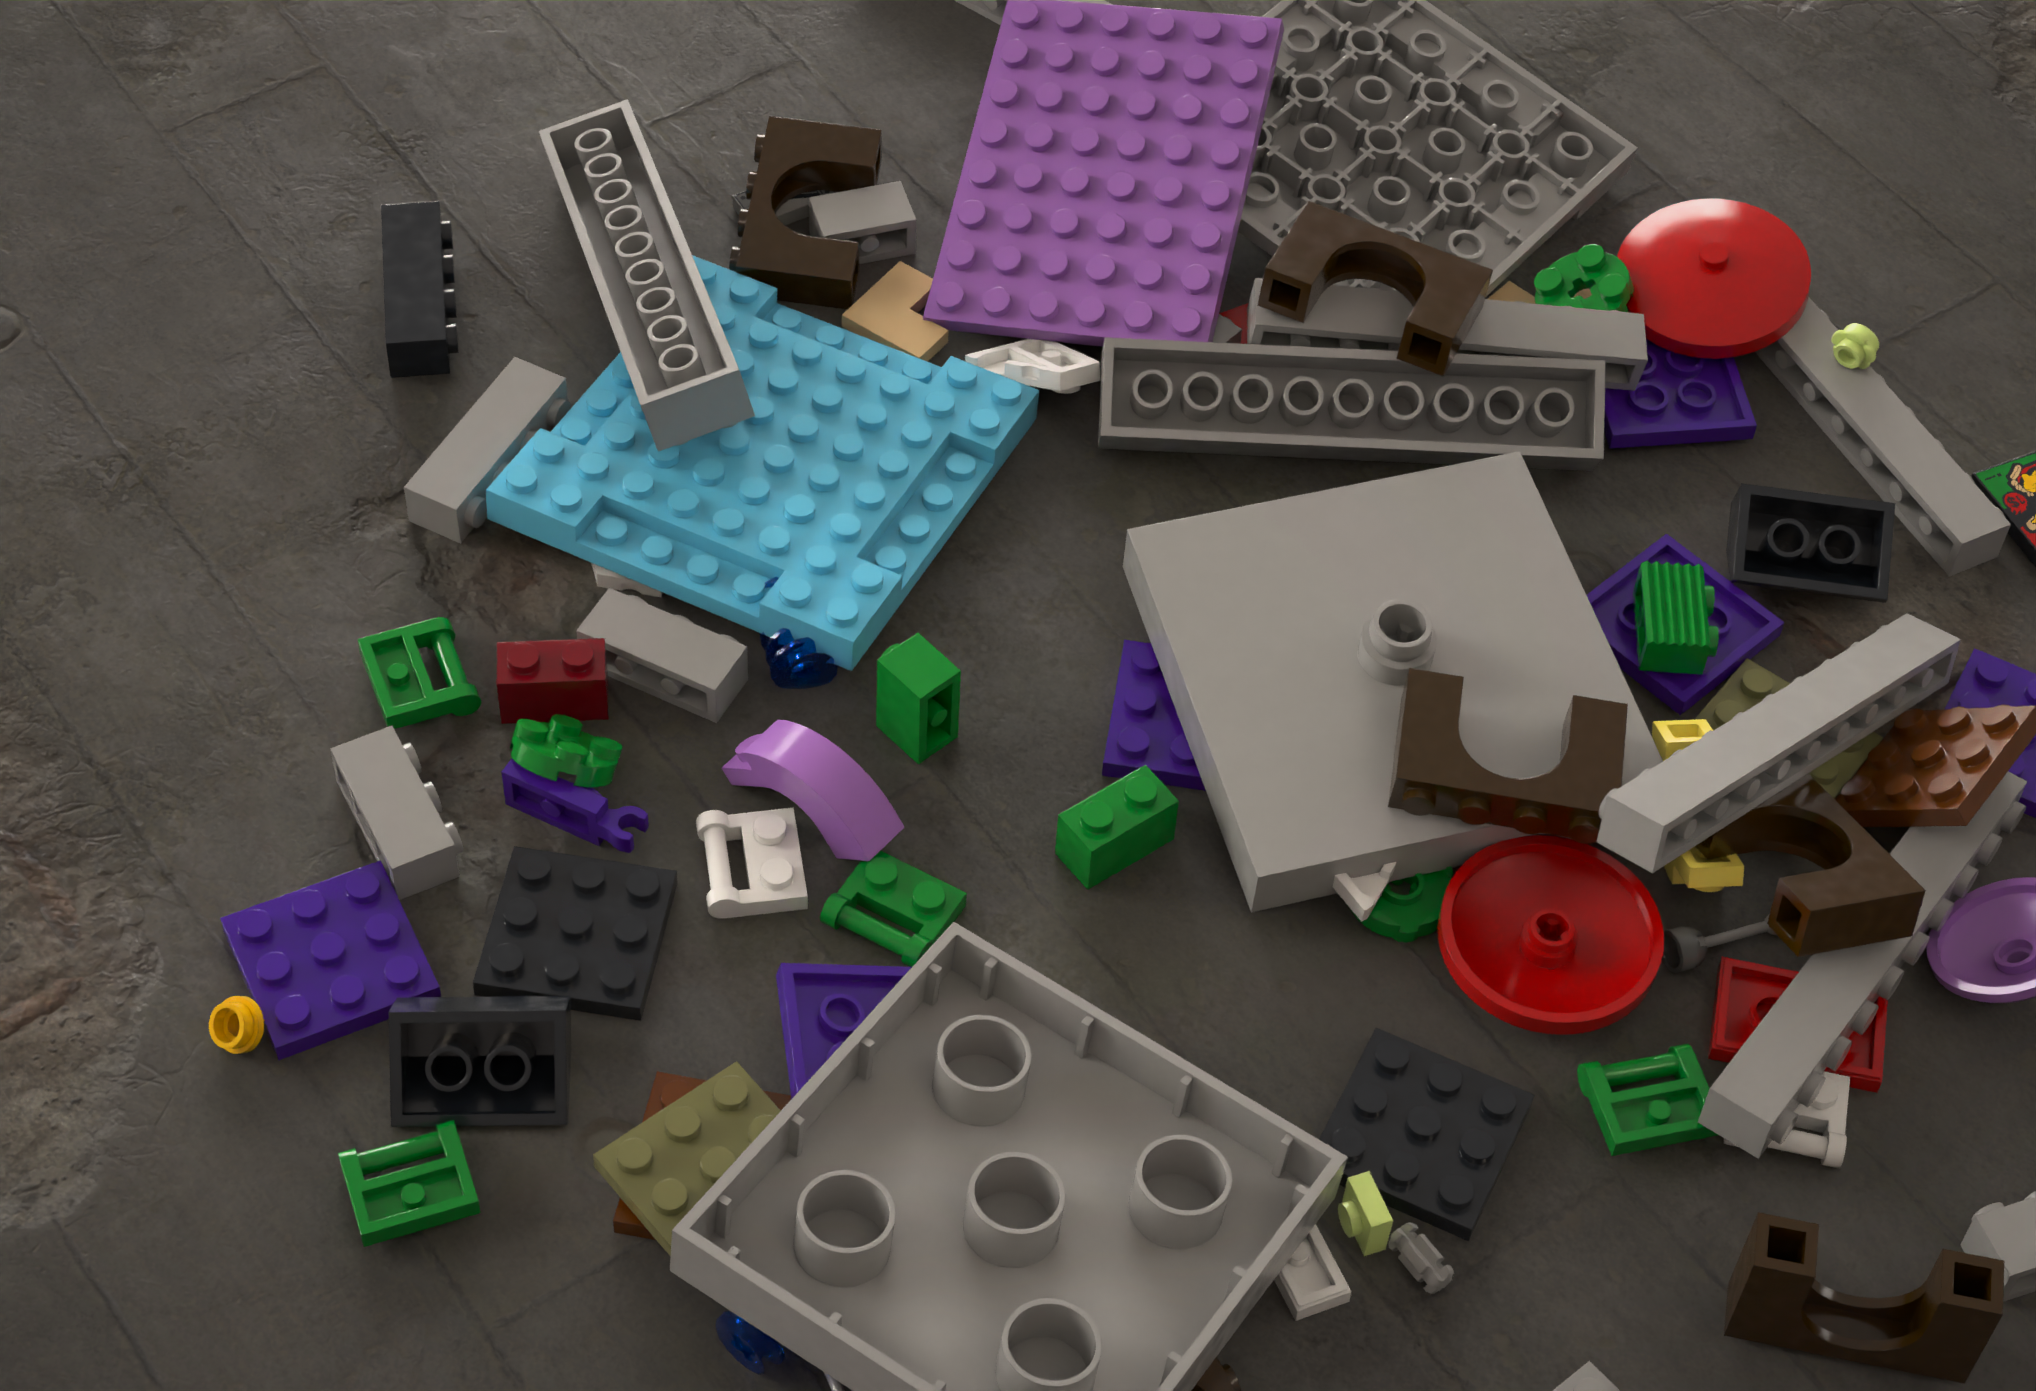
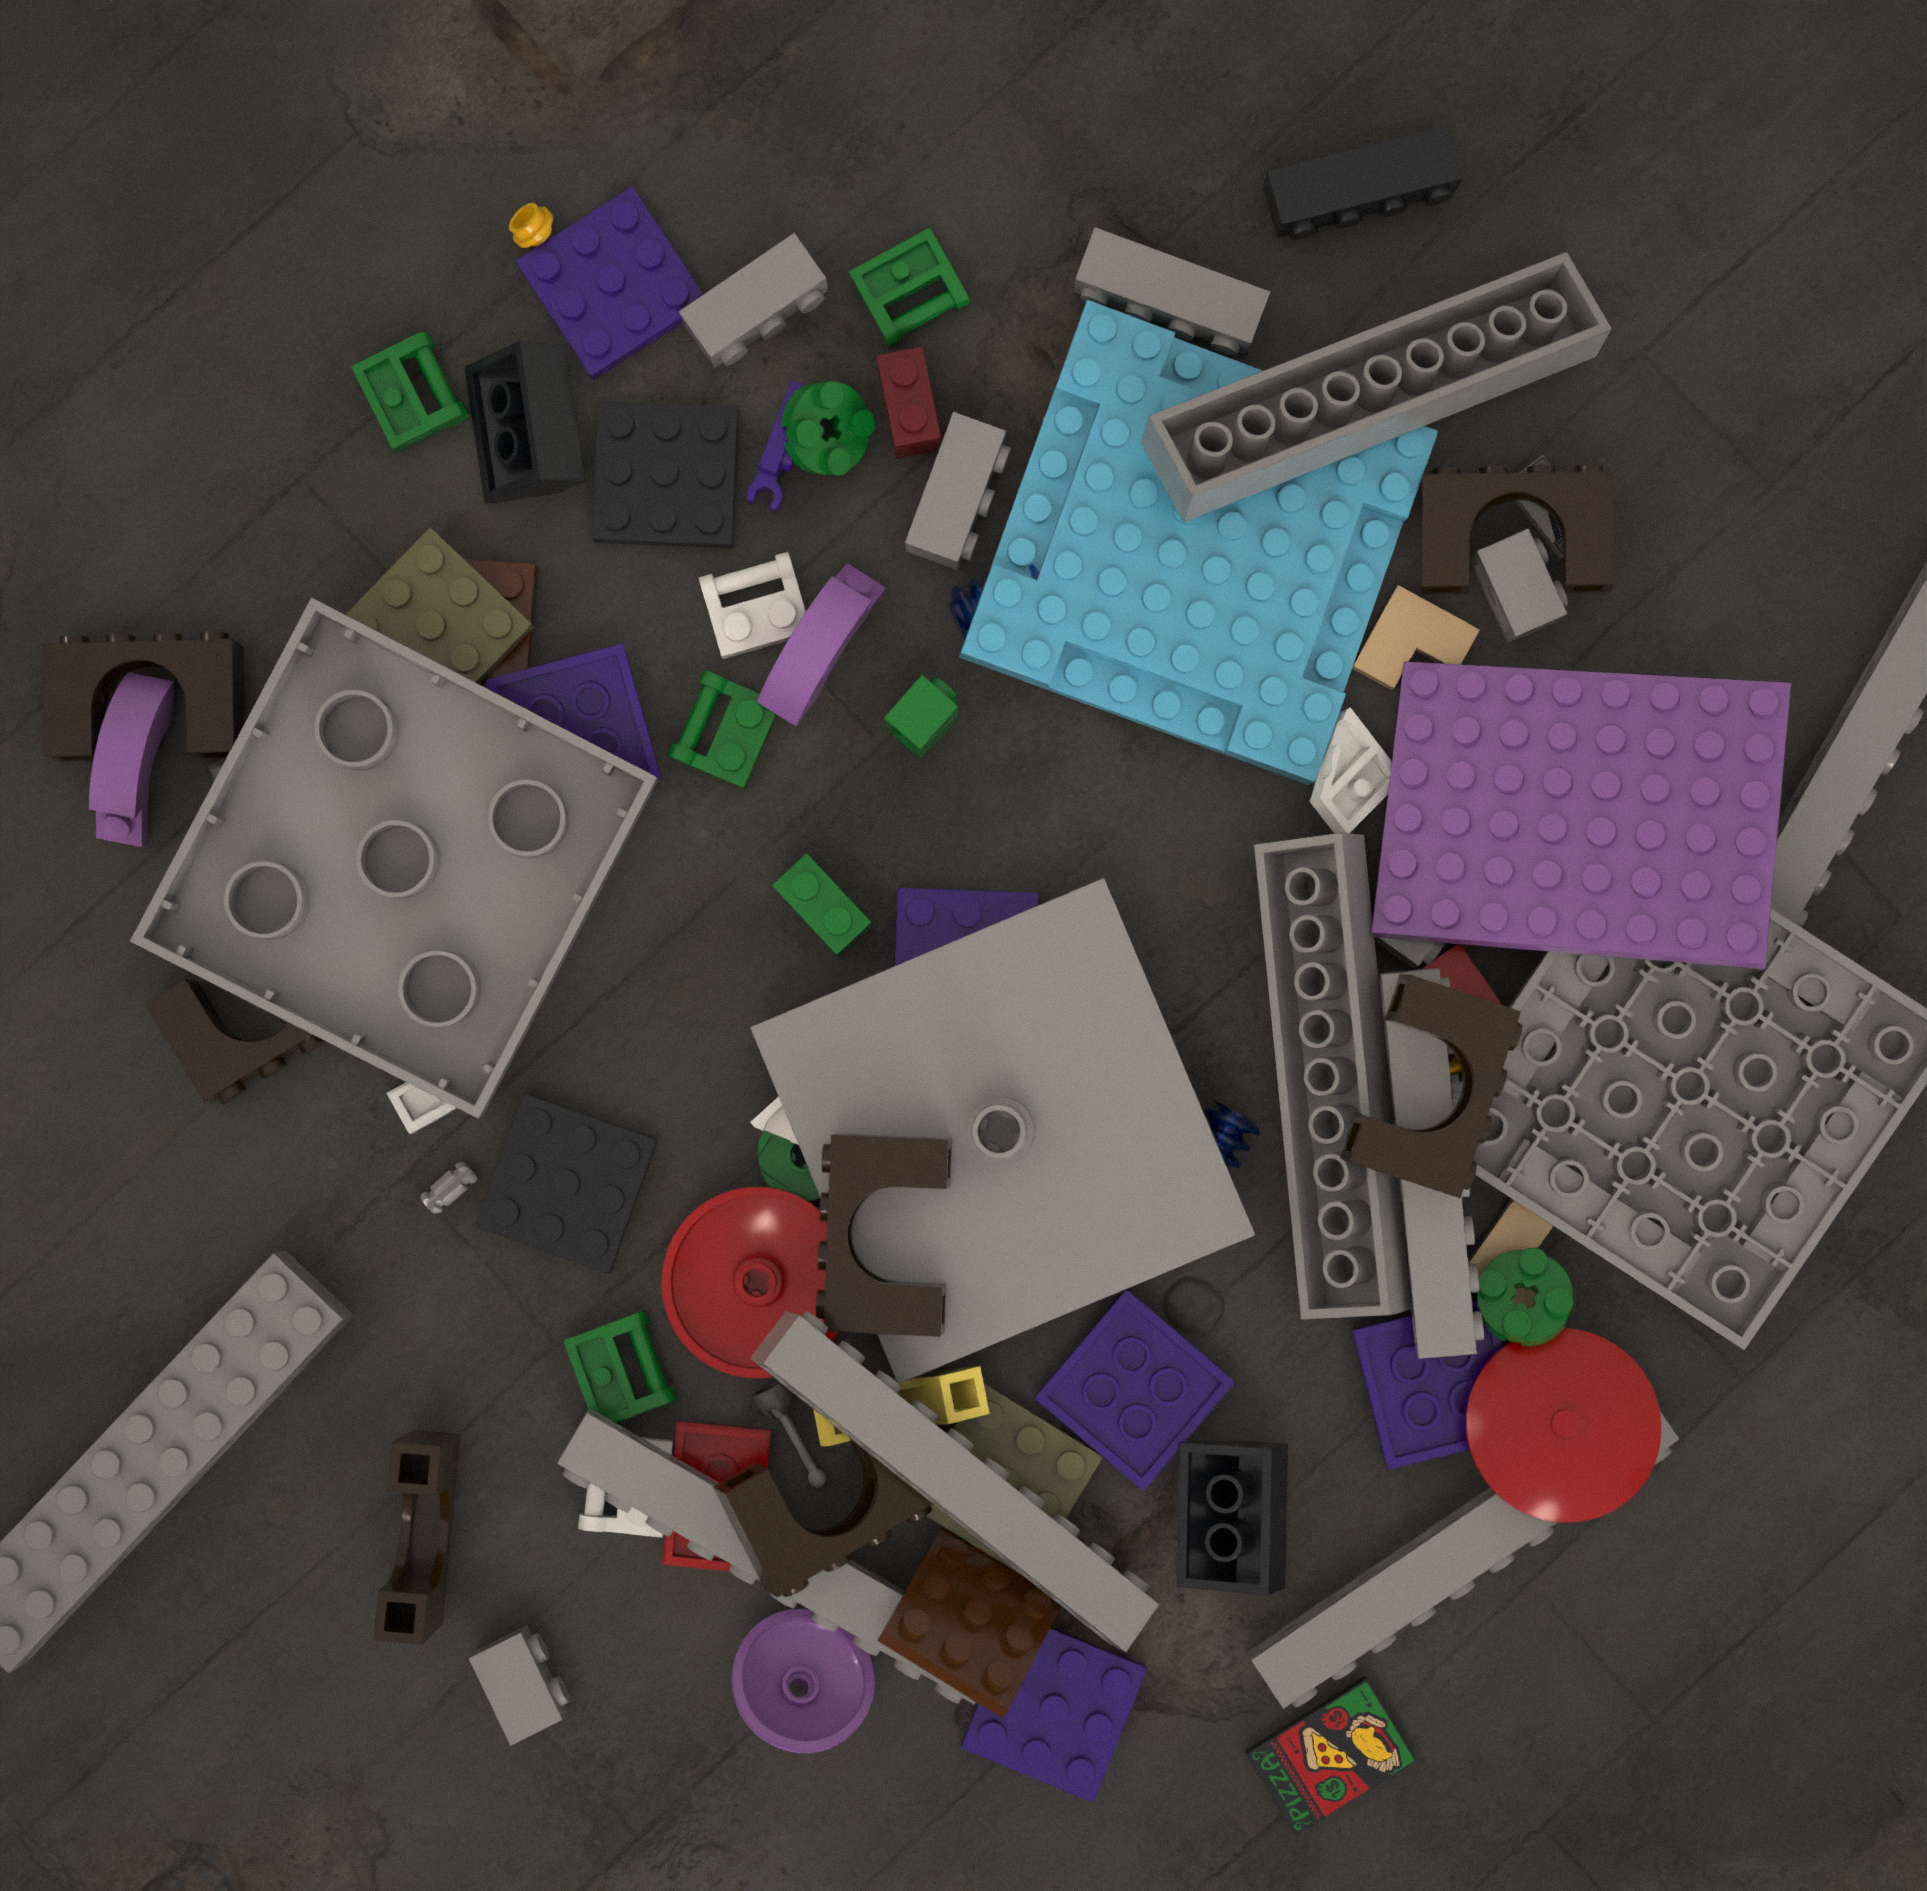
camera: 85 degrees right, 35 degrees up
(1365, 1214) = (473, 1138): yellowish green plate -> none
(1673, 618) = (1112, 1386): green brick -> none
(1855, 346) = (1479, 1564): yellowish green plate -> none

